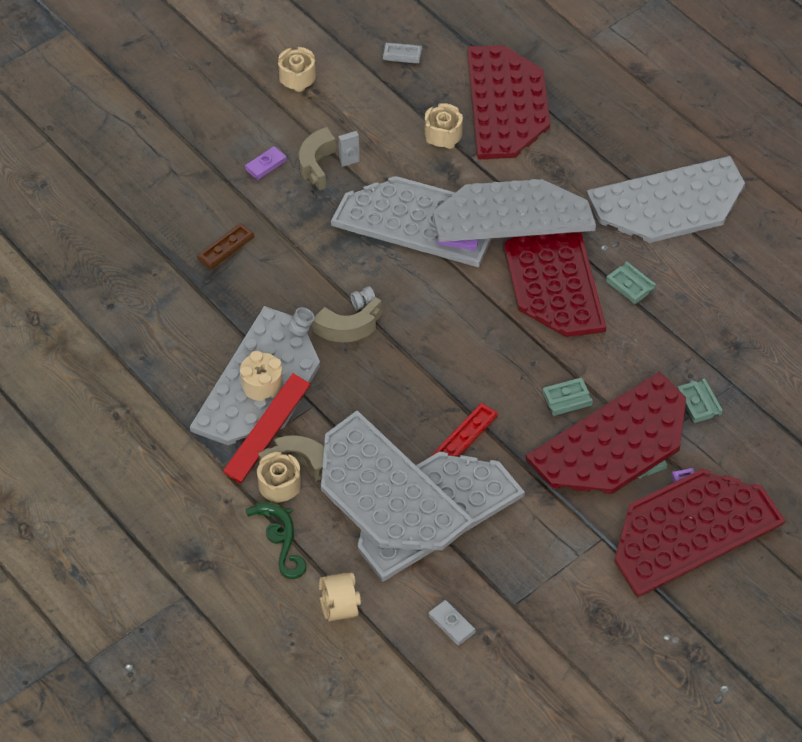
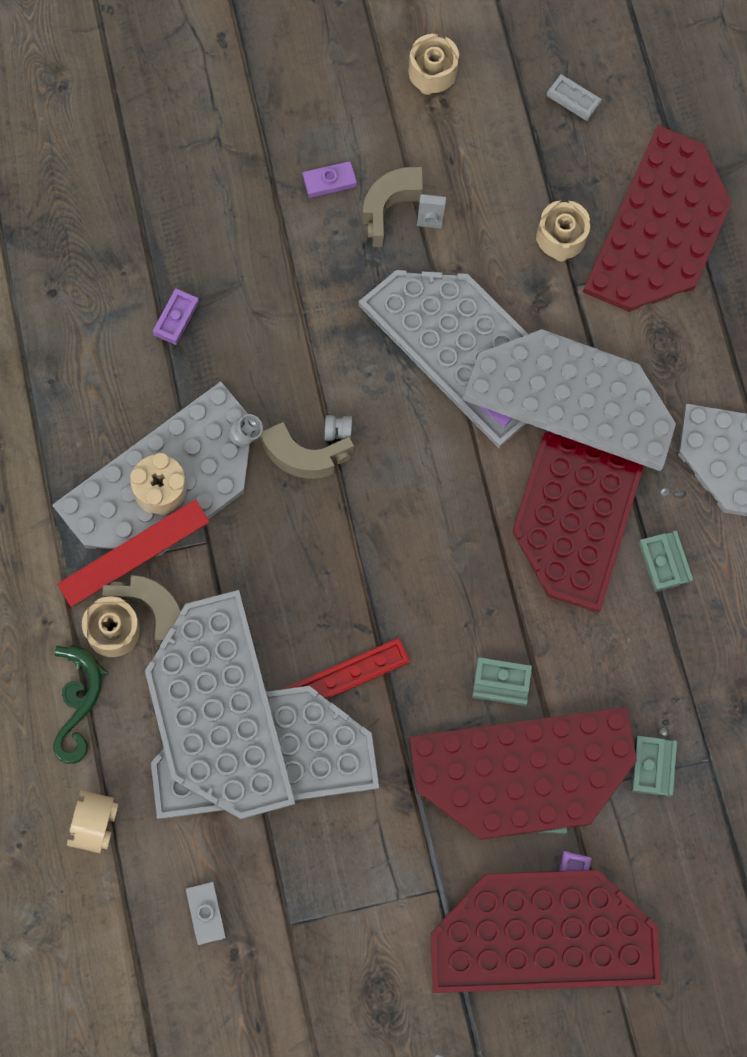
camera: 20 degrees right, 20 degrees up
(208, 281) = (175, 316): none -> medium lavender plate
(225, 246) = (222, 274): reddish brown tile -> none

